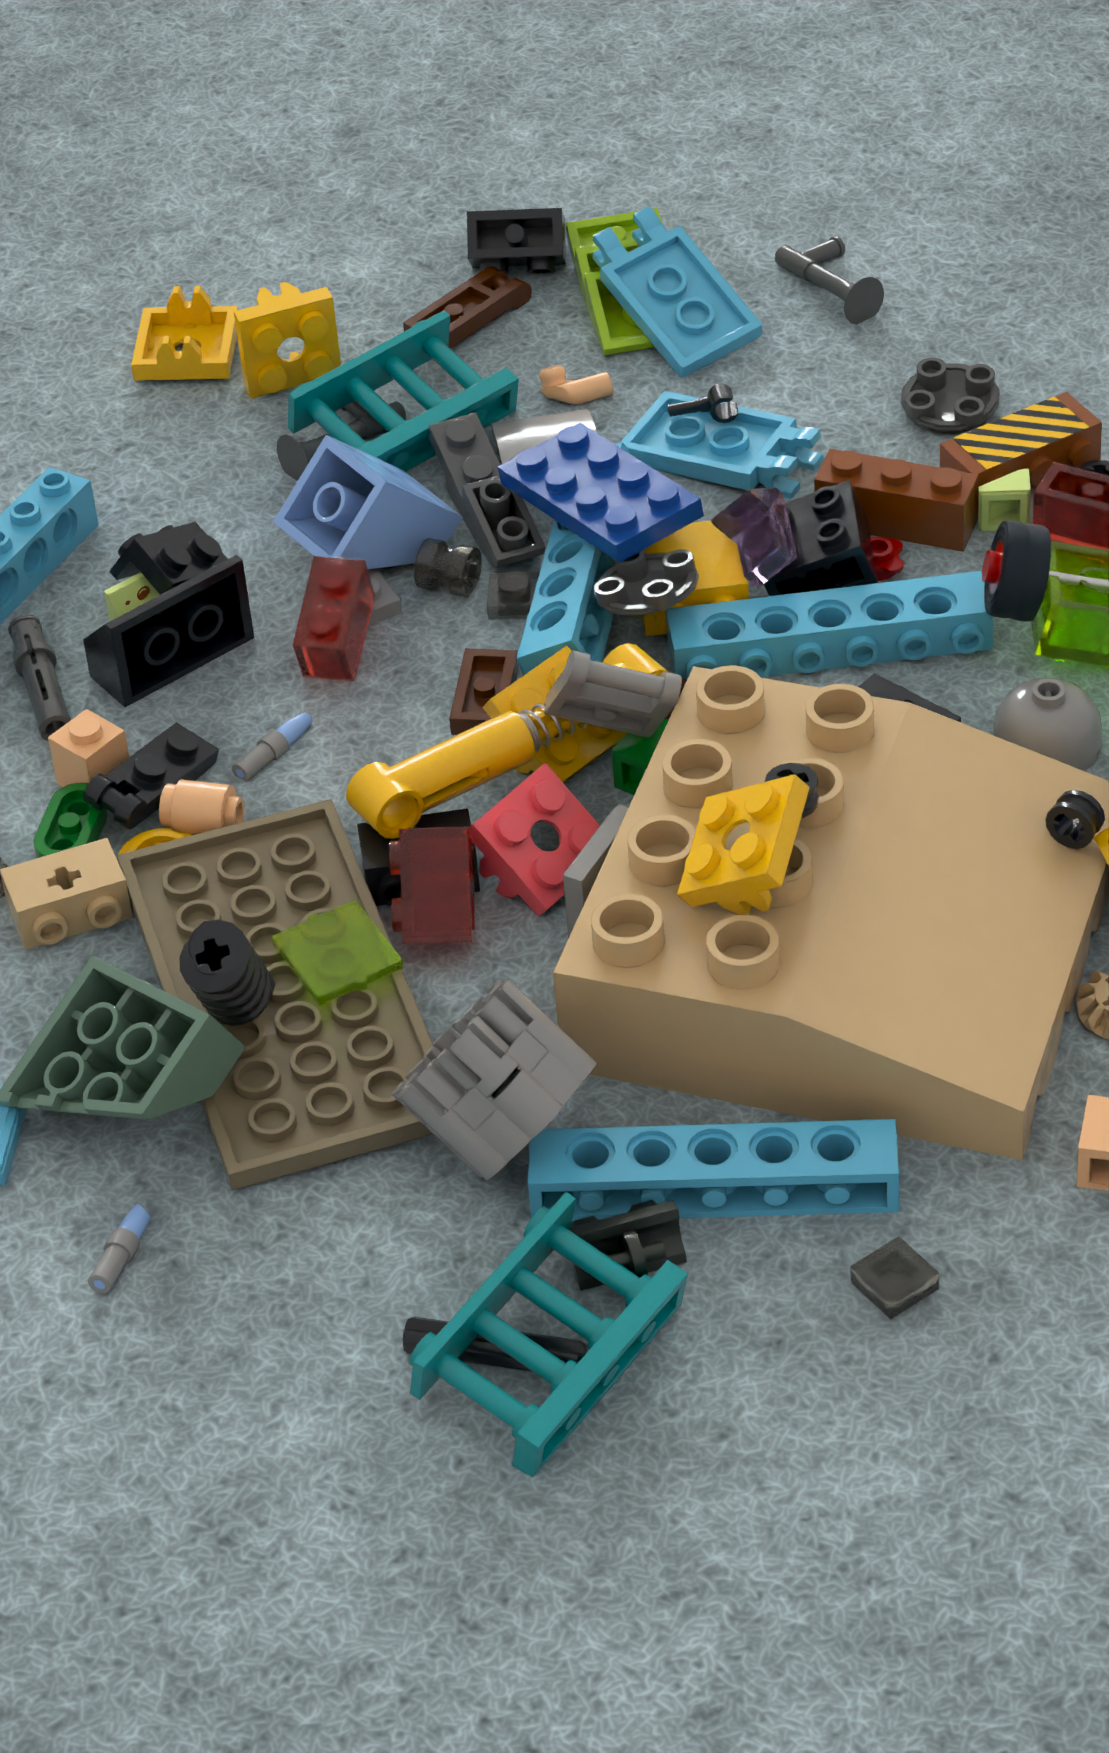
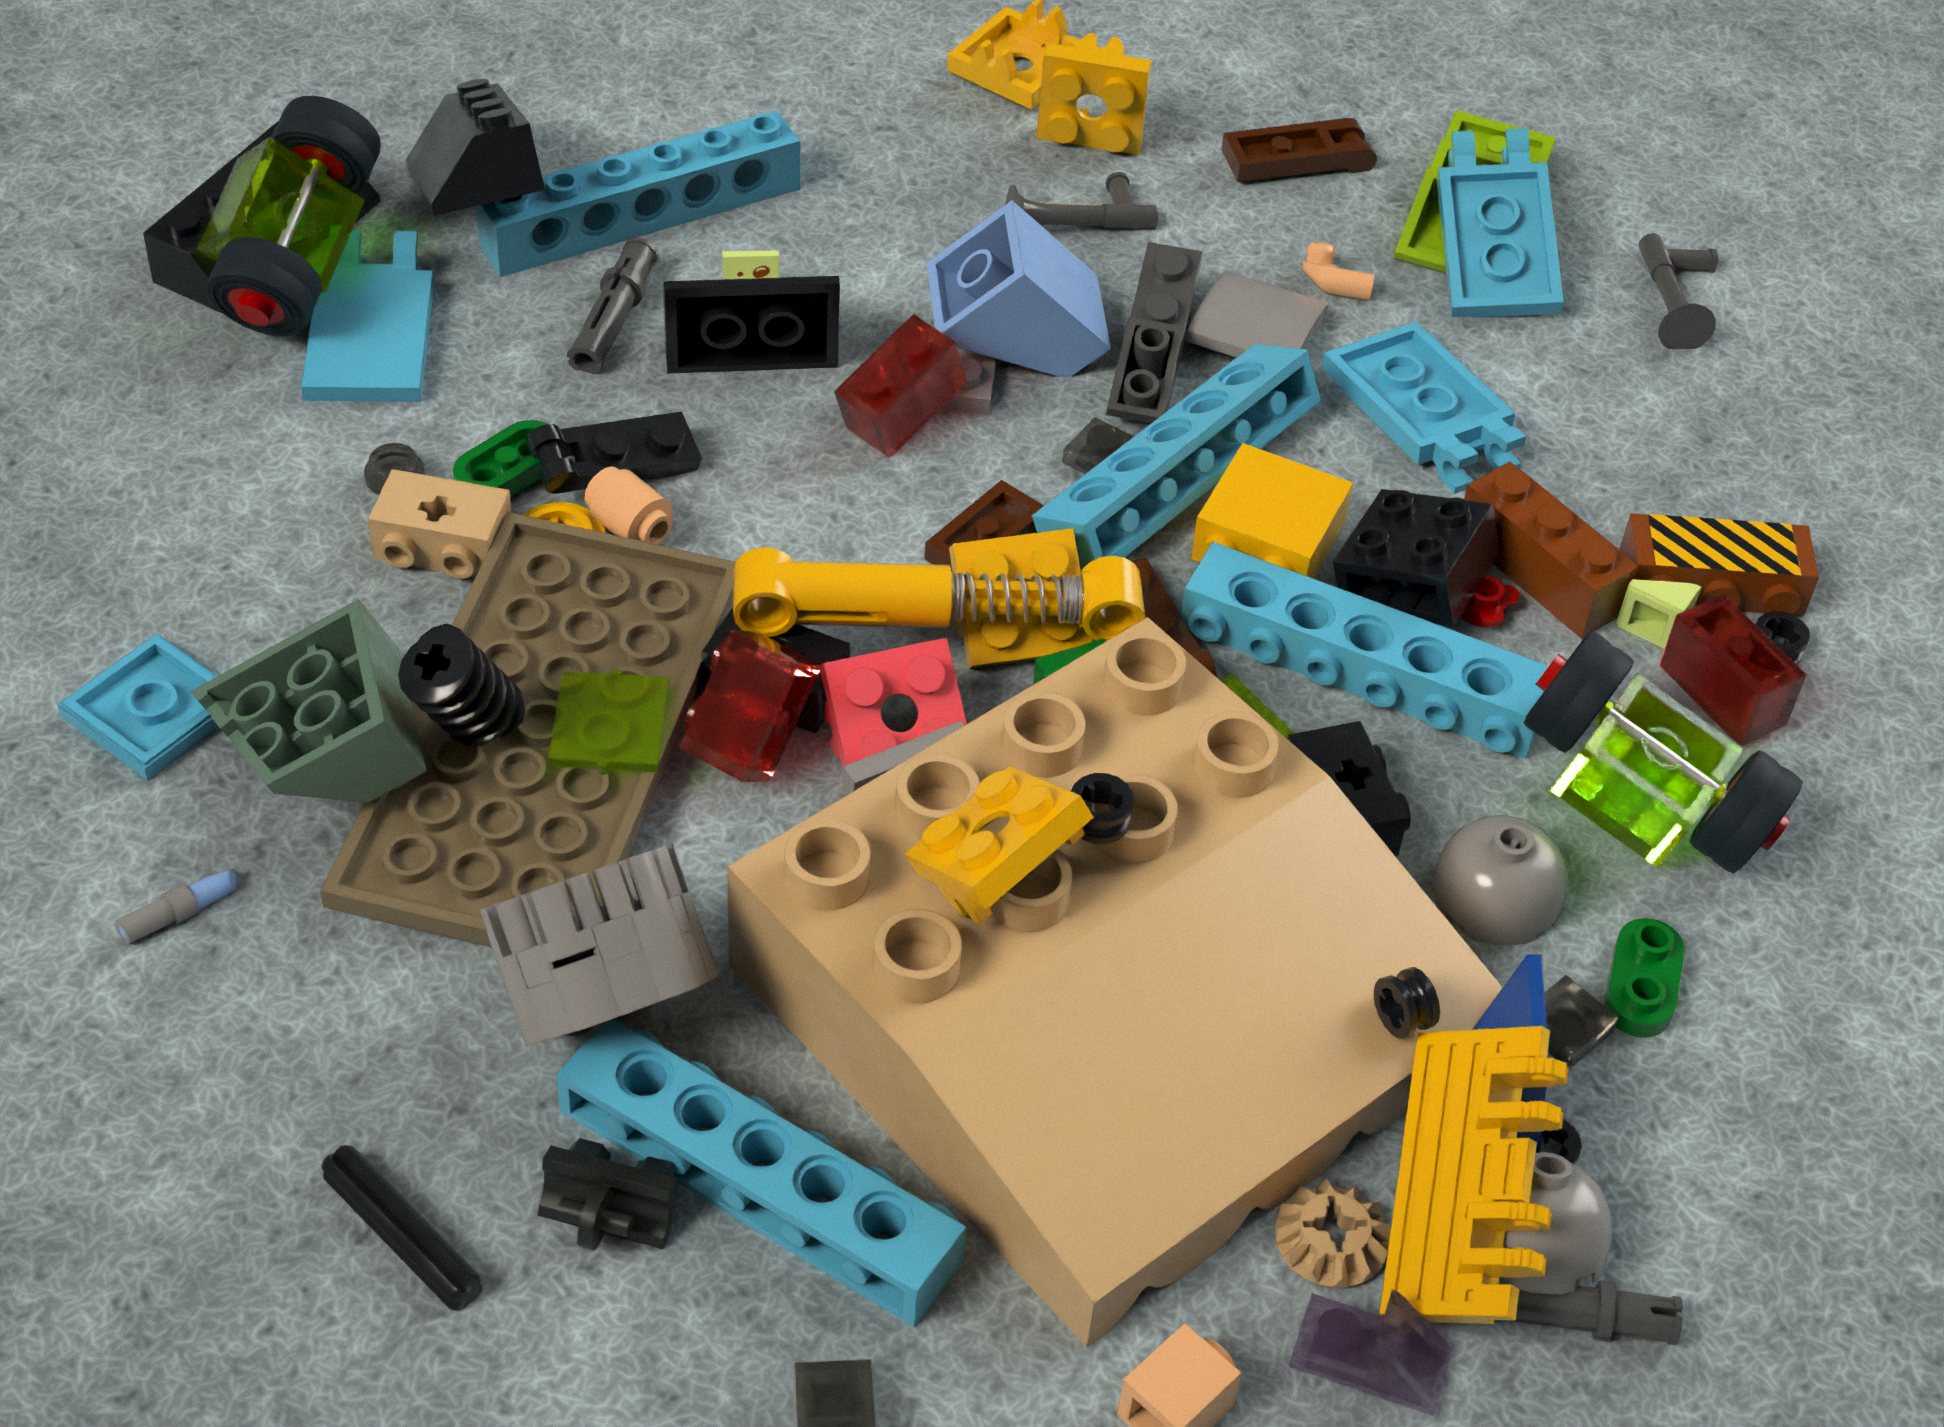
camera: 25 degrees right, 5 degrees up
(86, 748) = (577, 392): light nougat brick -> none
(168, 556) = (815, 249): black bracket -> none
(272, 746) = (756, 481): light grey piece -> none
(406, 440) = (1121, 251): teal fence -> none
(447, 567) = (1053, 386): clear smoke wheel -> none
(517, 239) = (1396, 103): black brick -> none
(574, 1385) = (422, 1321): teal fence -> none
(600, 492) = (1235, 390): blue plate -> none
(612, 696) = (1046, 602): light grey plate -> none
(647, 583) = (1200, 504): dark grey dish -> none
(720, 412) = (1442, 359): black hand -> none
(761, 531) = (1362, 507): clear purple slope -> none
(950, 395) = (1697, 468): dark grey dish -> none

